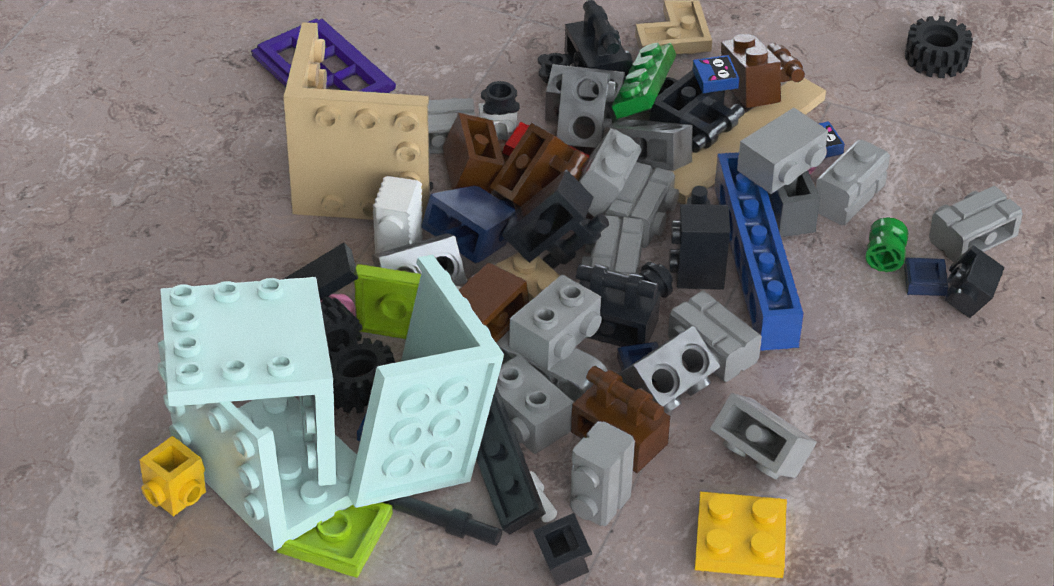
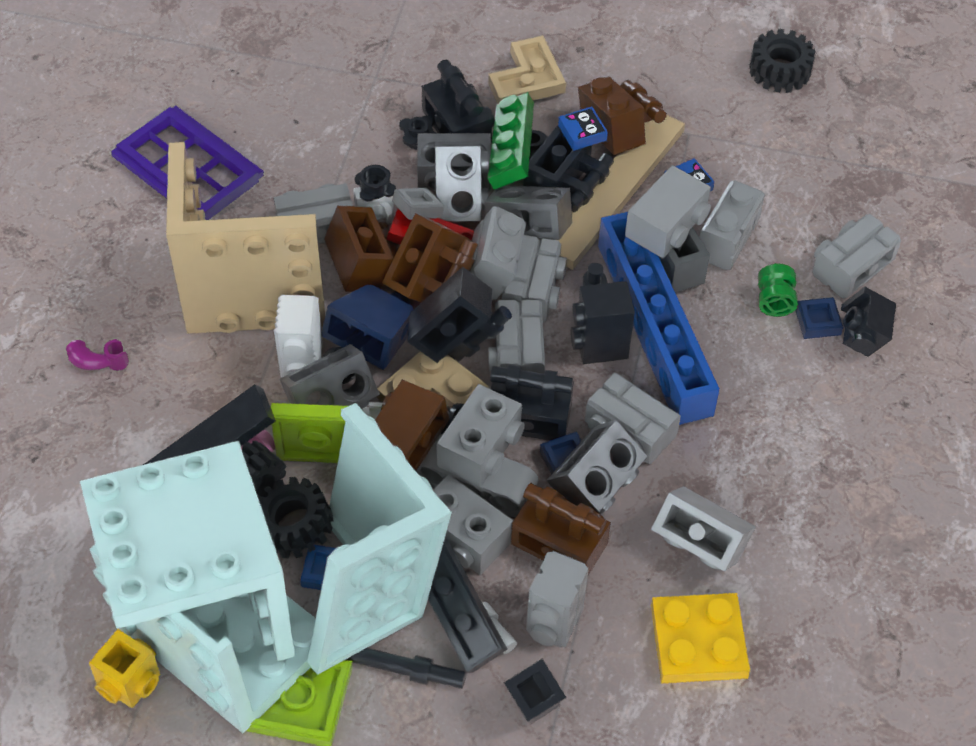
camera: 10 degrees left, 10 degrees up
(189, 220) = (85, 359): none -> magenta arm
(539, 117) = (417, 201): none -> light grey tile
(658, 274) = (564, 361): black plate -> none

